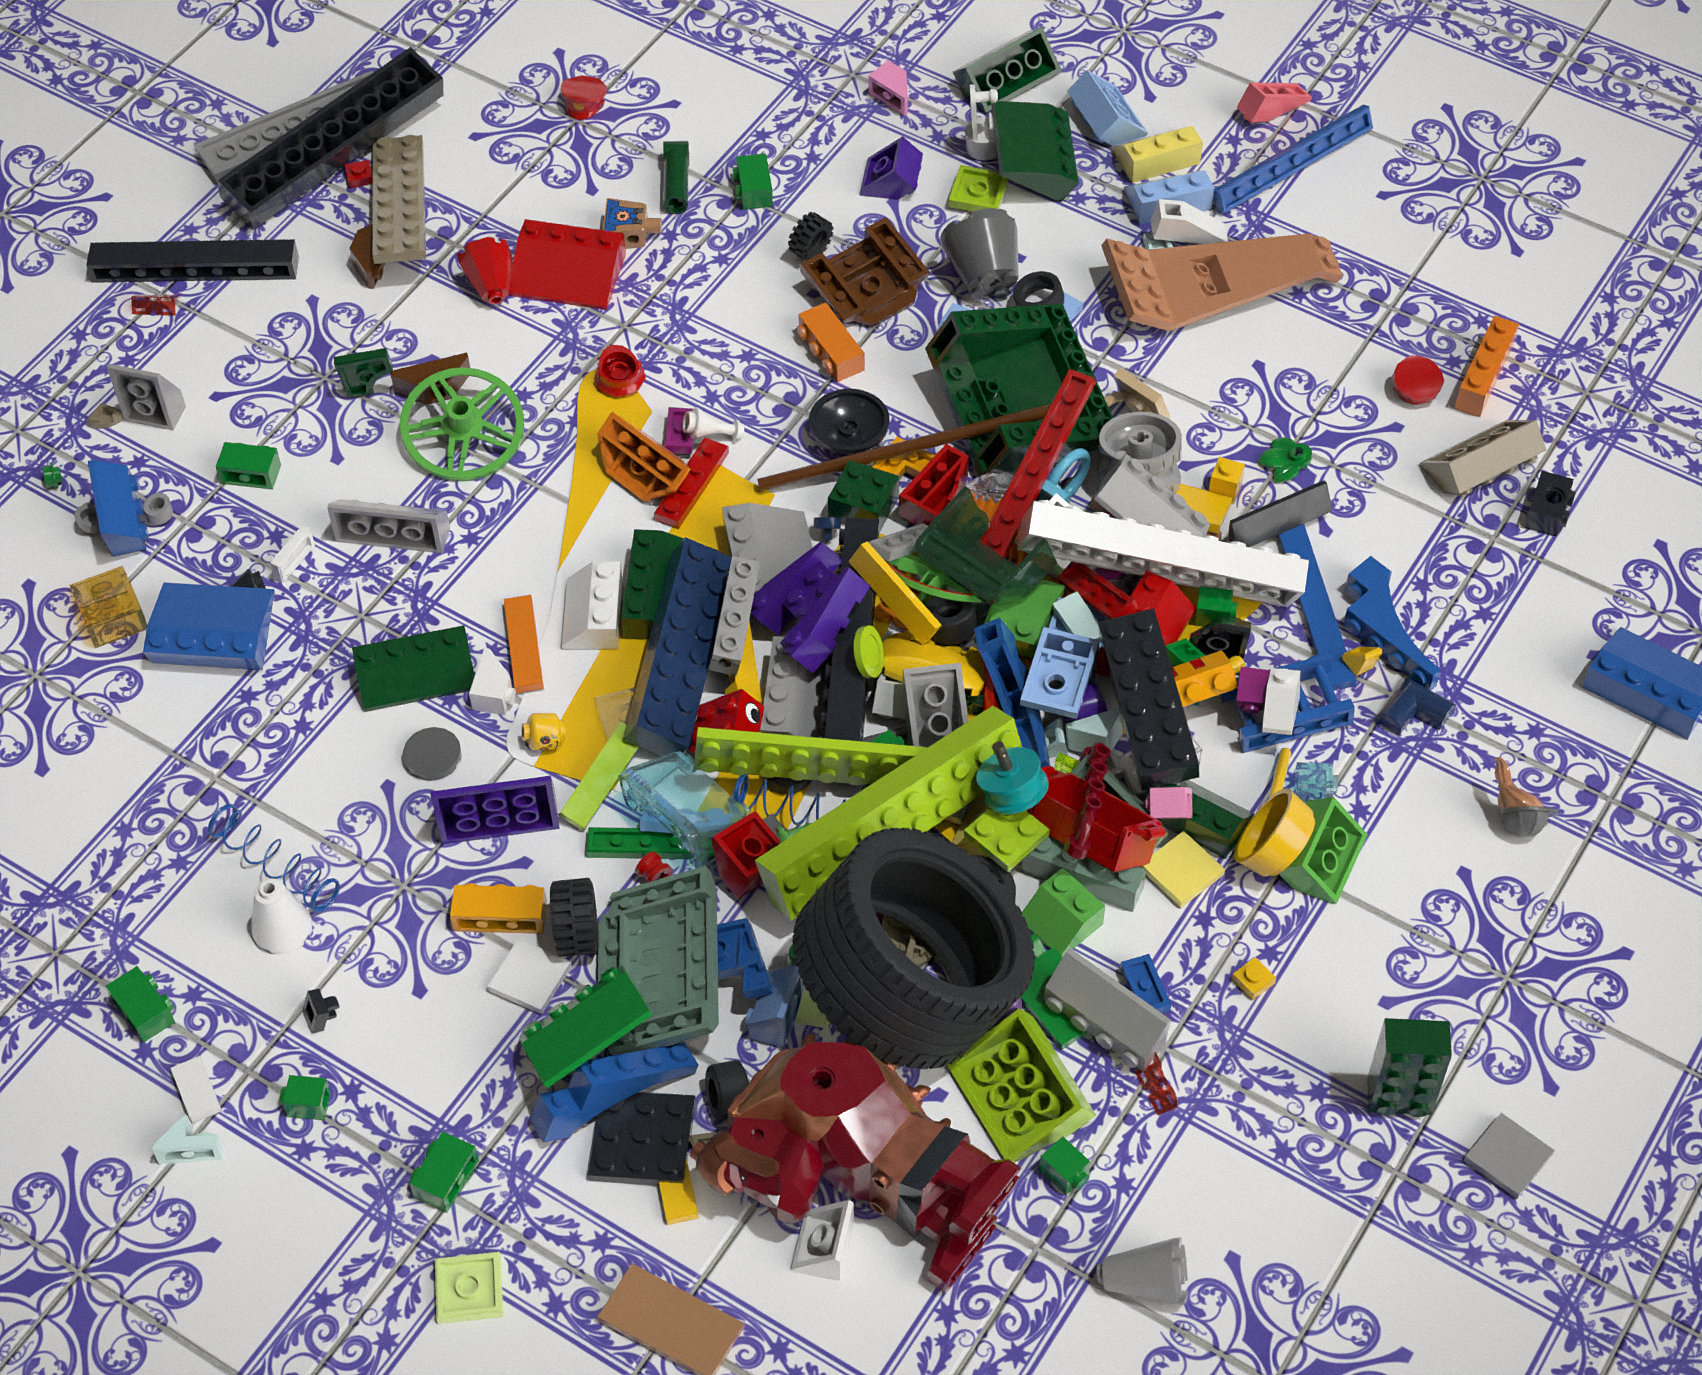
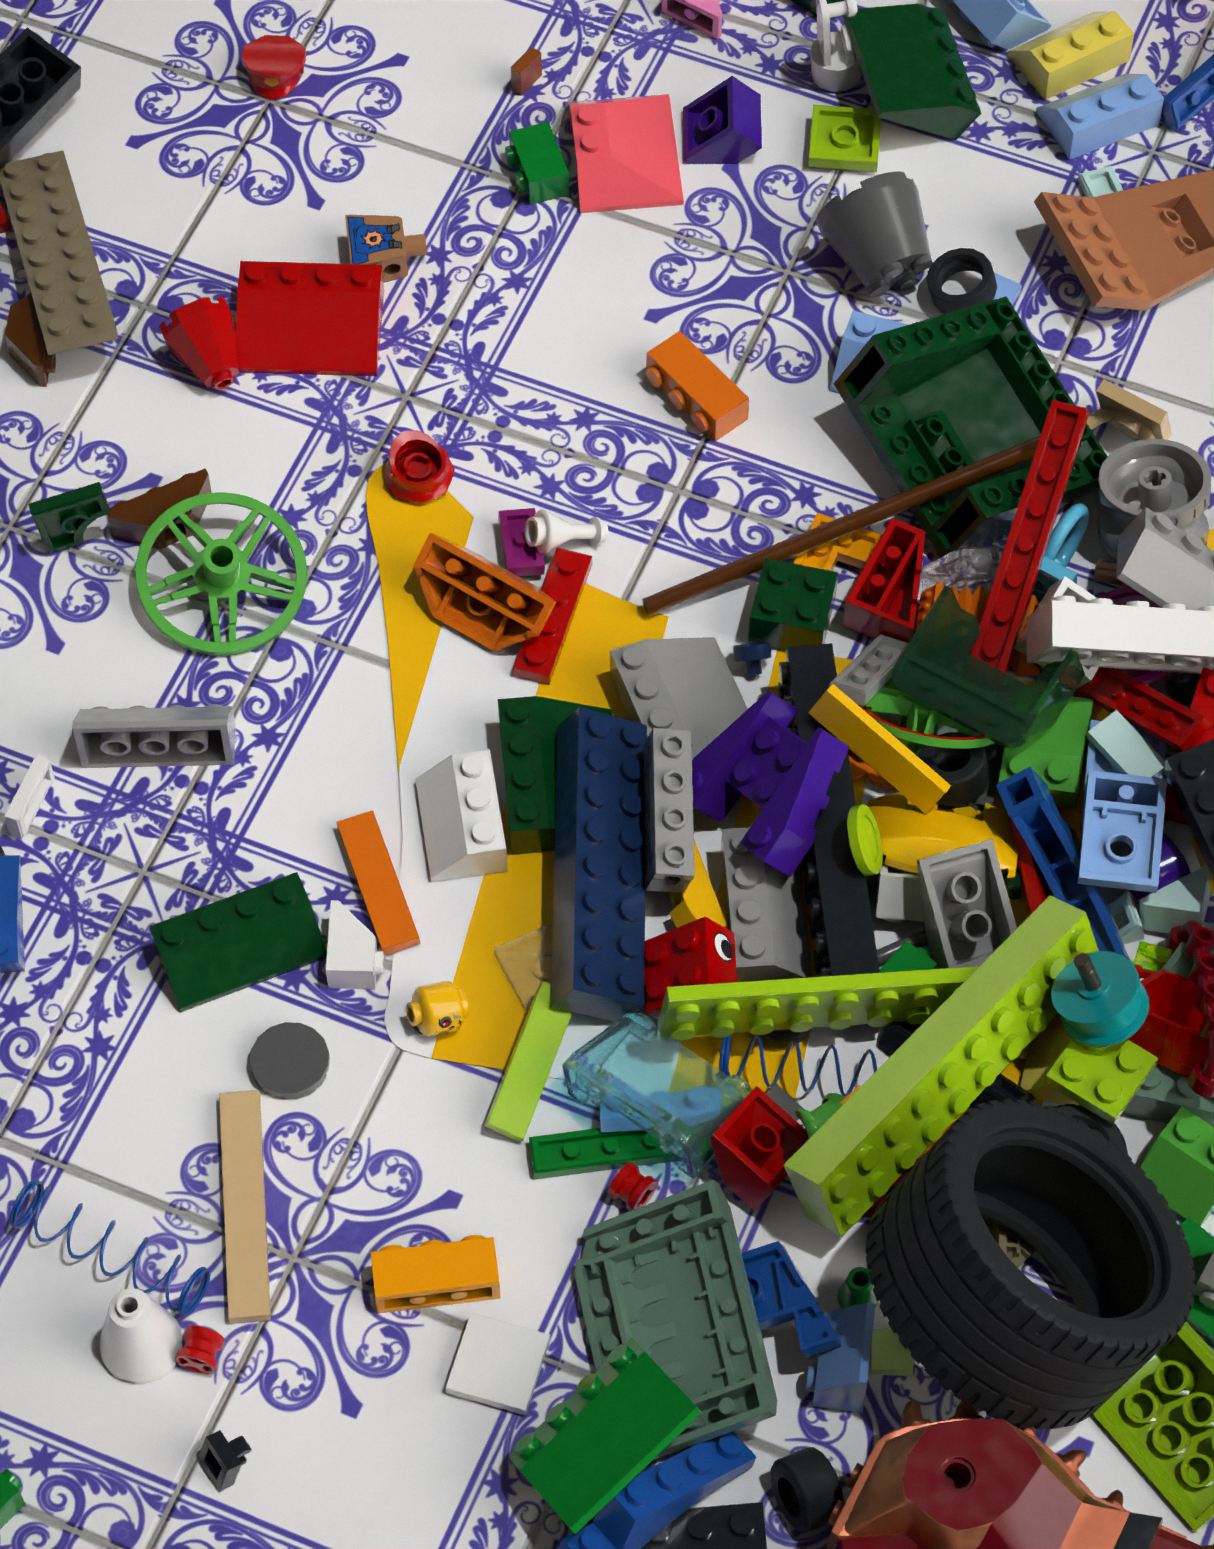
camera: 10 degrees left, 5 degrees up
(320, 935) = (200, 1349): none -> red wheel
(376, 846) = (244, 1207): none -> tan tile
(496, 809) = (403, 1135): dark purple slope -> none
(574, 917) = (547, 1275): black tyre -> none
(675, 176) = (429, 168): dark green piece -> none
(760, 120) = (526, 71): none -> dark orange tile
(810, 236) = (636, 237): black tyre -> none
(818, 182) = (625, 153): none -> coral slope
(849, 421) = (754, 485): black dish -> none
(869, 278) = (728, 284): reddish brown slope -> none
(1185, 223) = (1136, 154): white slope -> none

